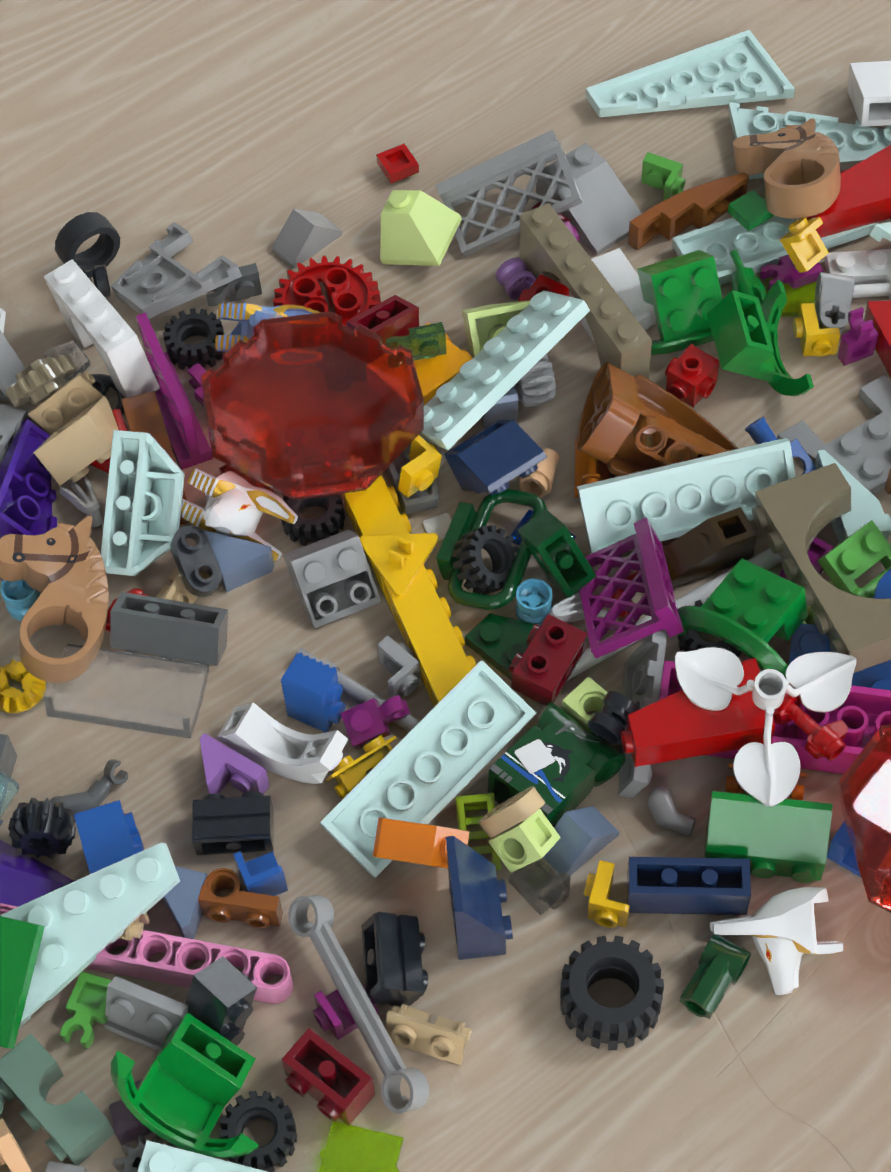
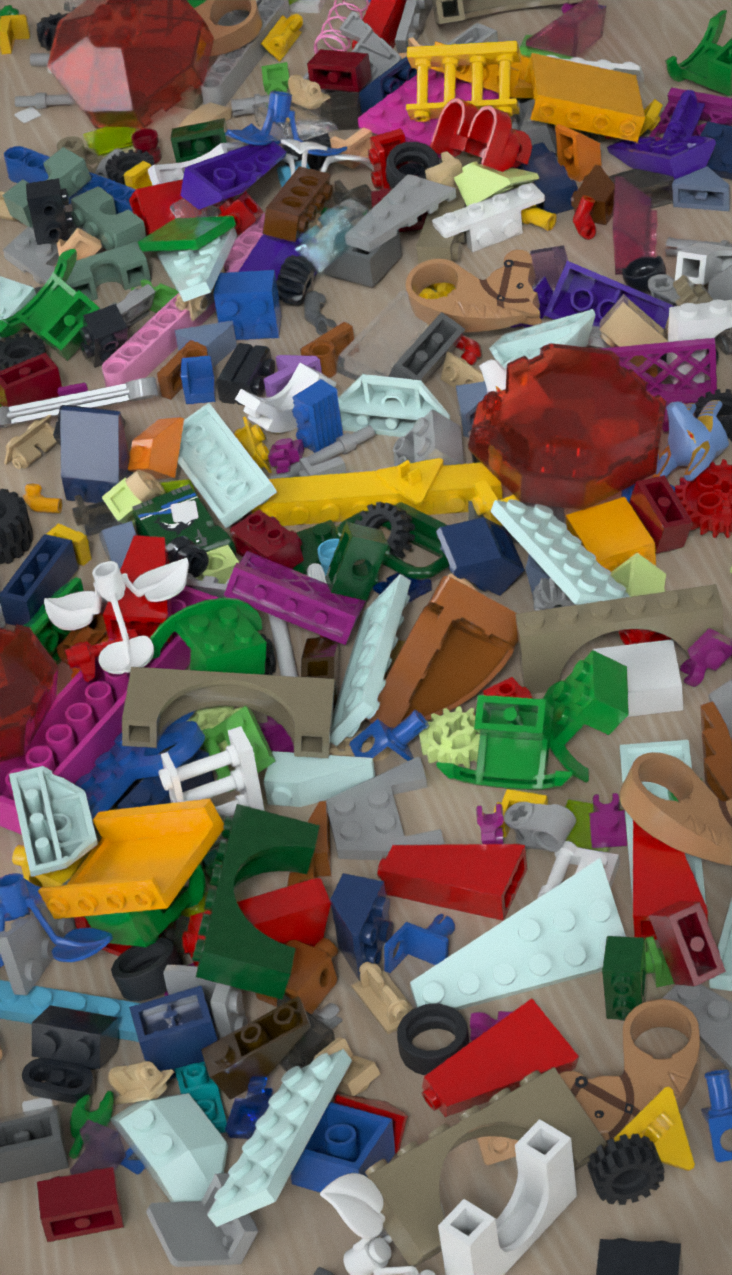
camera: 115 degrees right, 15 degrees down
(161, 748) = (329, 347): none -> dark orange plate
(194, 559) = (467, 369): black plate -> none
(266, 629) = (386, 404): none -> light aqua wedge
(423, 341) = (617, 519): clear green plate -> none
(531, 974) = (38, 502): none -> light orange arm
(740, 405) = (454, 736): none -> yellowish green gear
(745, 280) = (605, 777): green hand -> none
(804, 243) = (605, 807): yellow bracket -> none

